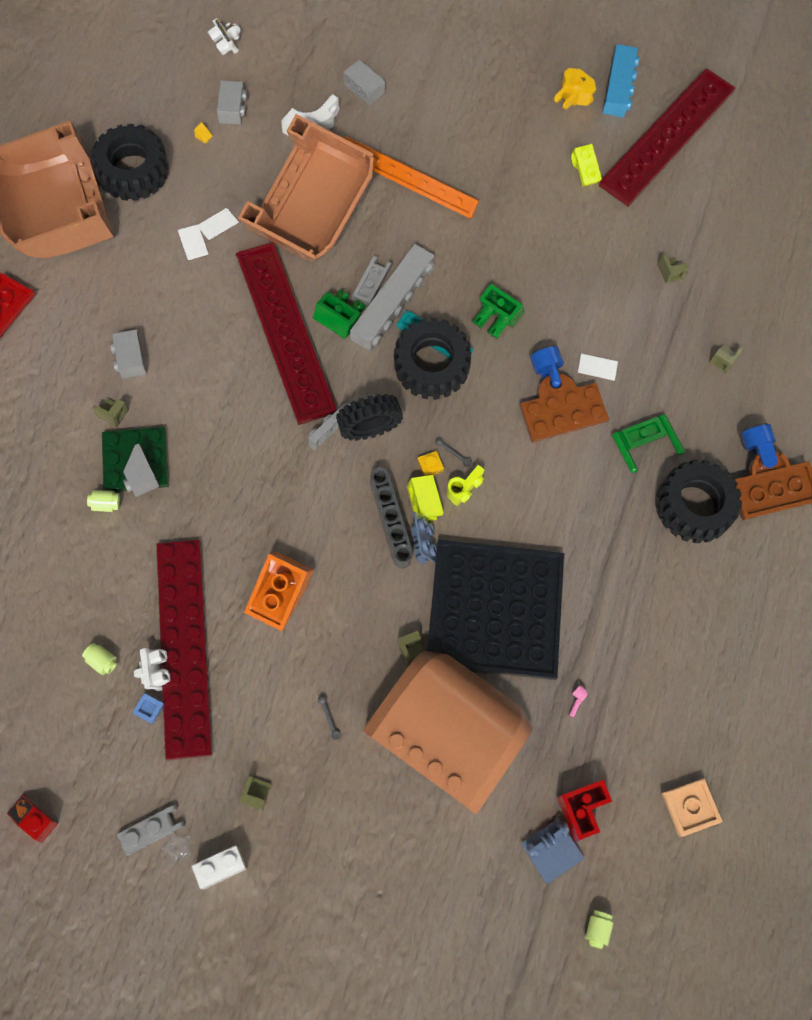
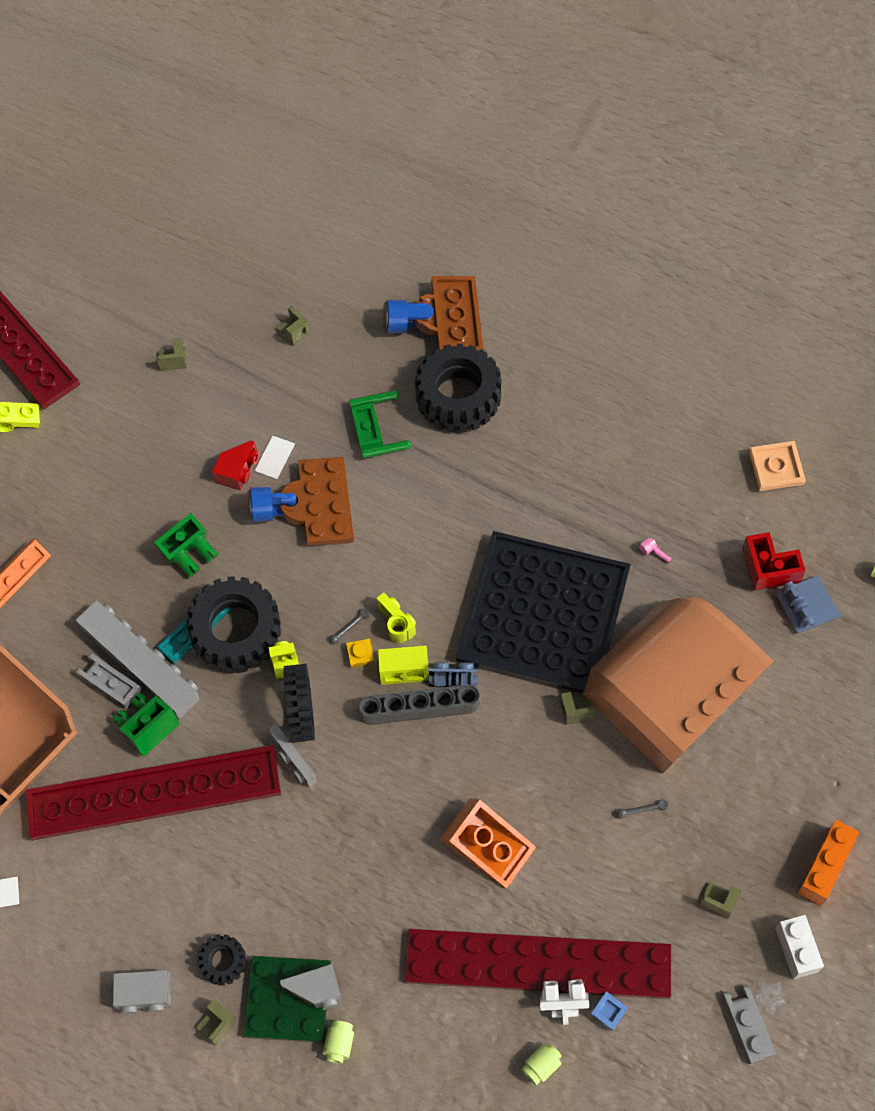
camera: 70 degrees left, 5 degrees down
(159, 416) = (208, 951): none -> black tyre
(300, 888) = (828, 862): none -> orange brick
(410, 403) = (282, 655): none -> neon yellow plate
(580, 335) = (235, 464): none -> red slope

